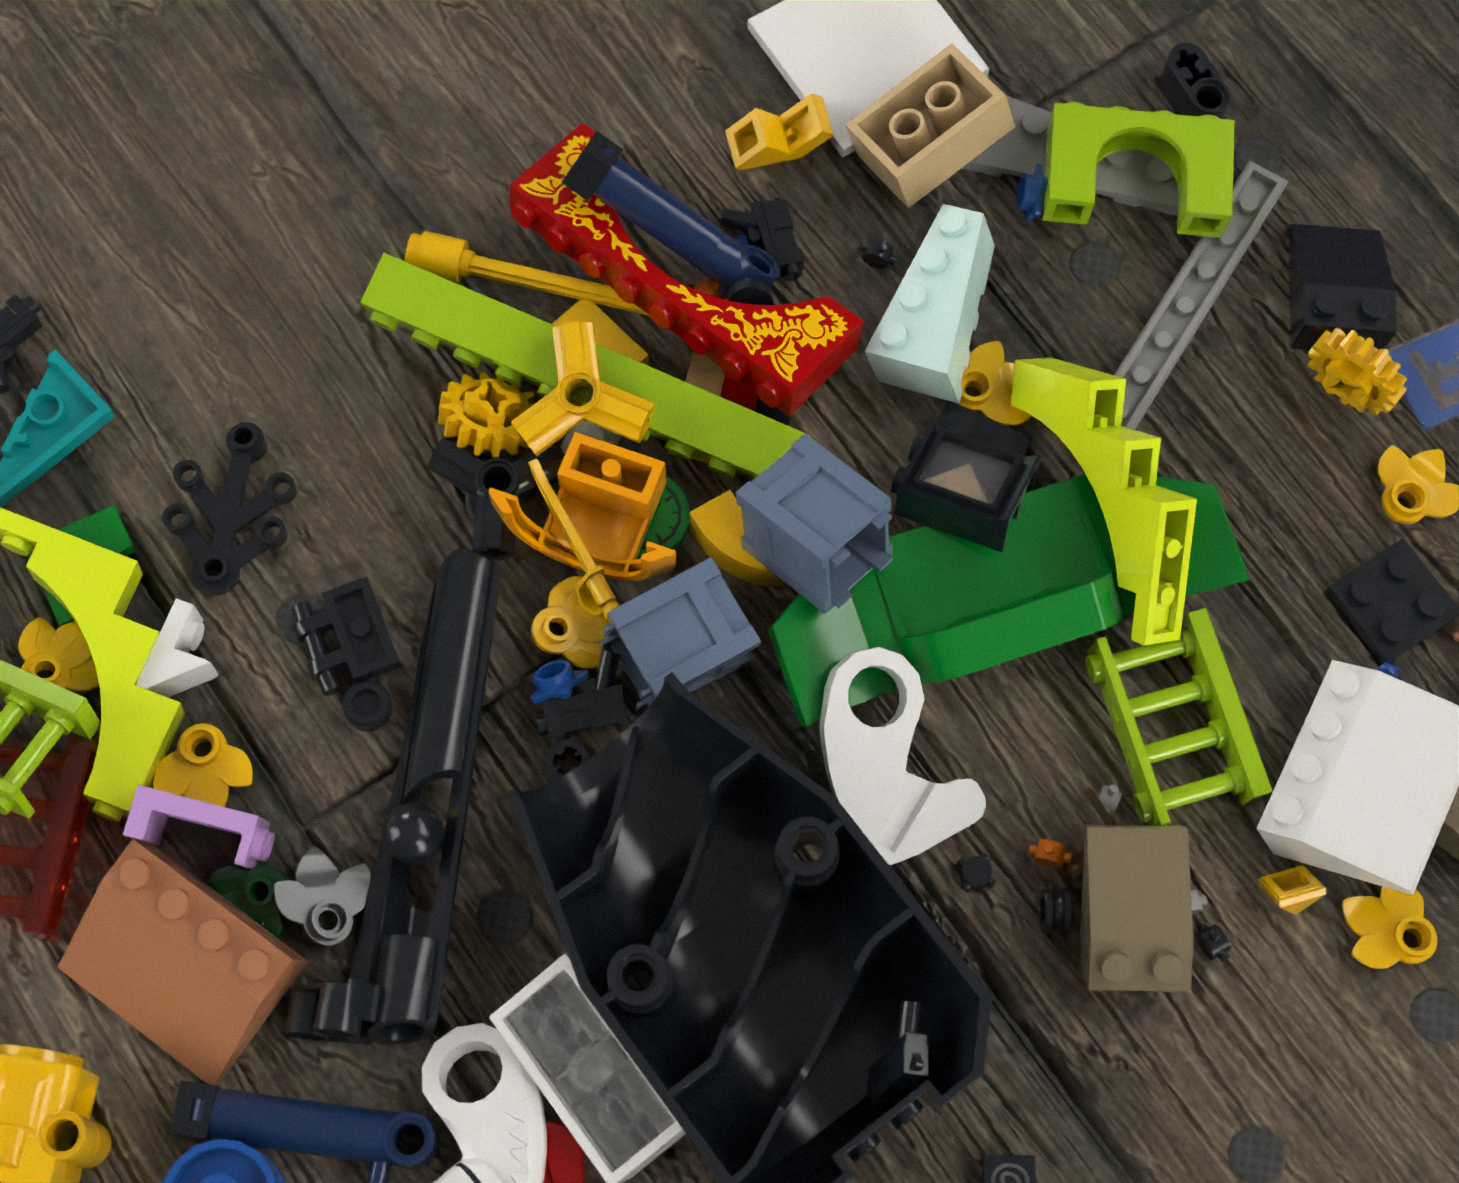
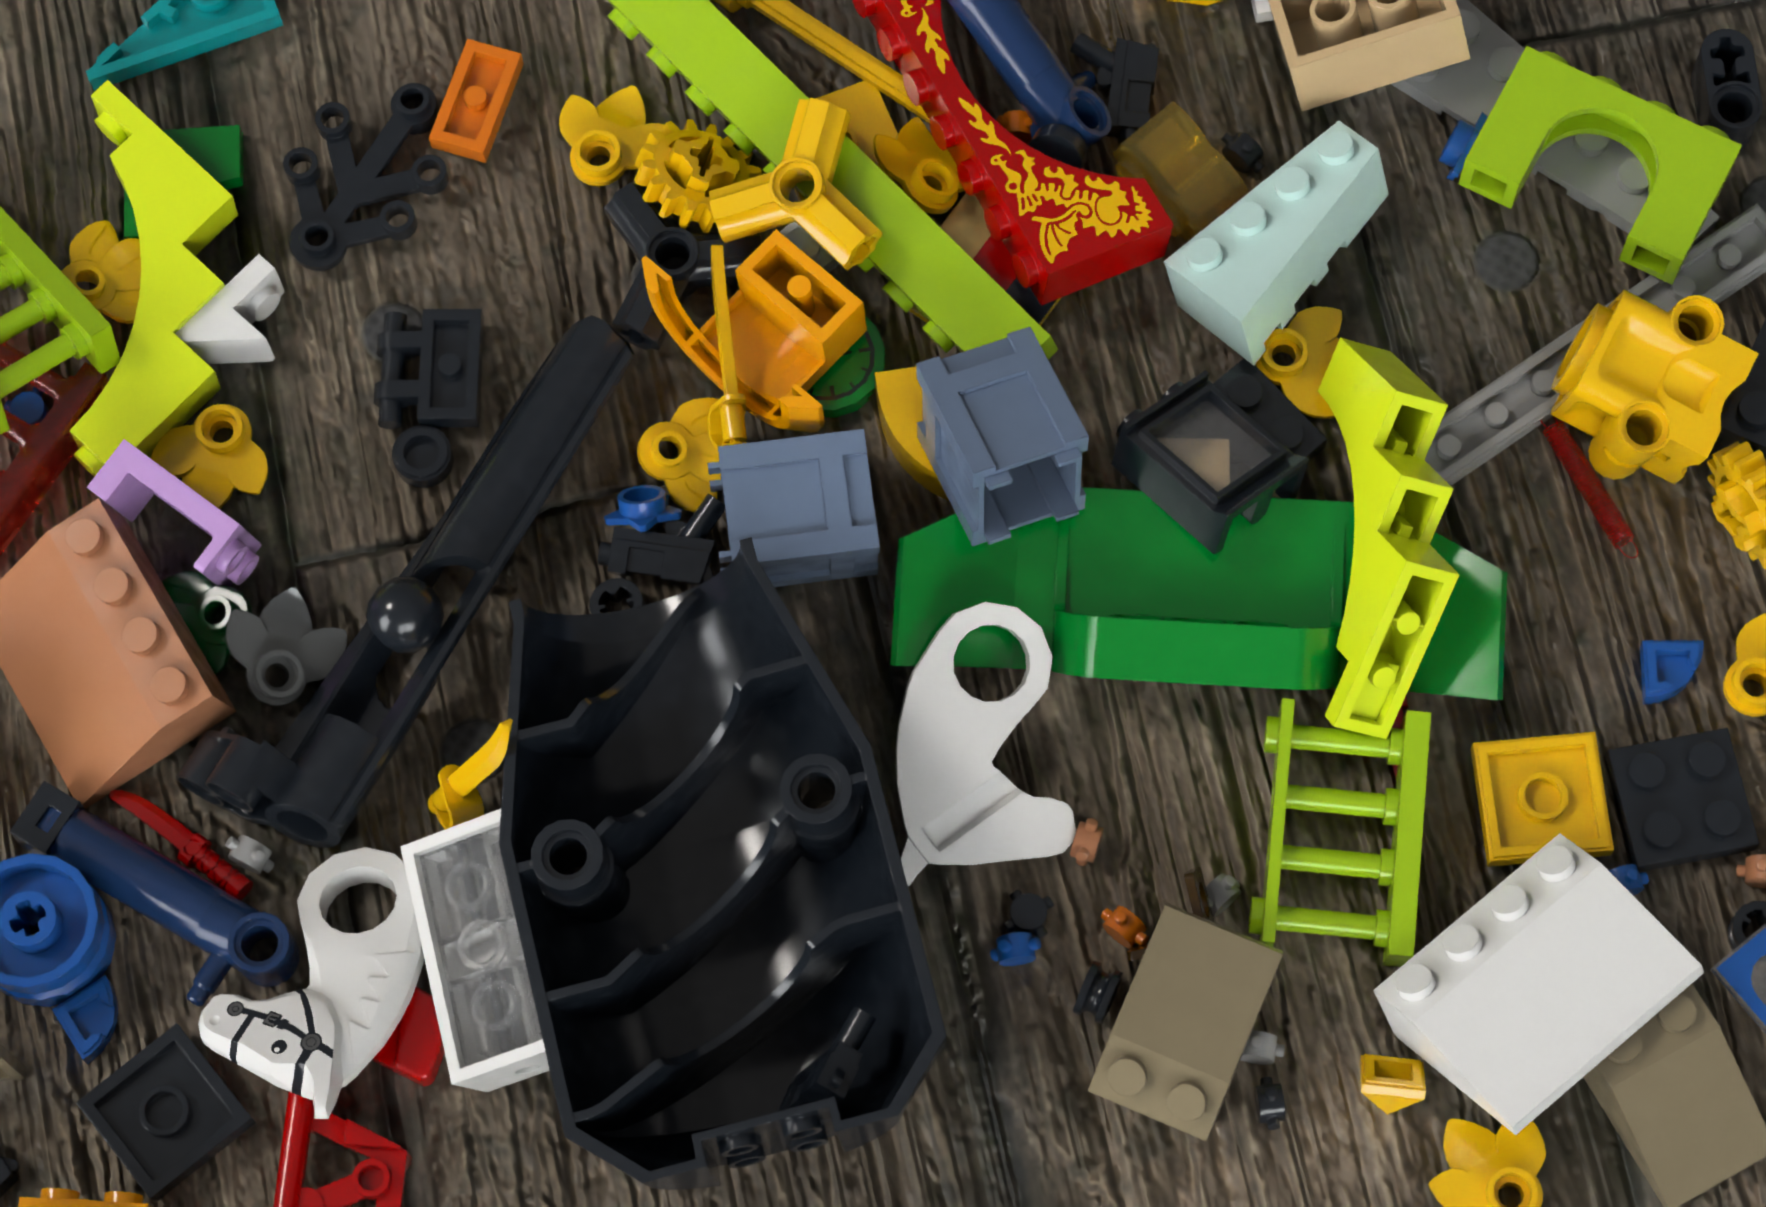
camera: 30 degrees right, 0 degrees up
(39, 786) = (28, 406): none -> blue piece
(292, 419) = (476, 100): none -> orange plate
(317, 1082) = (193, 848): none -> red piece
(366, 1069) = (249, 854): none -> light grey piece
(403, 404) = (611, 129): none -> yellow plate
(513, 958) = (457, 796): none -> yellow sword
(652, 347) = (920, 166): none -> yellow plate
(844, 276) = (1182, 170): none -> clear yellow brick
(979, 902) = (1015, 949): none -> blue piece
(995, 801) = (1086, 842): none -> nougat piece
(1248, 312) = (1650, 384): none -> yellow piece
(1261, 419) = (1611, 505): none -> red piece
(1298, 639) = (1538, 790): none -> yellow plate
(1339, 511) = (1667, 667): none -> blue tile

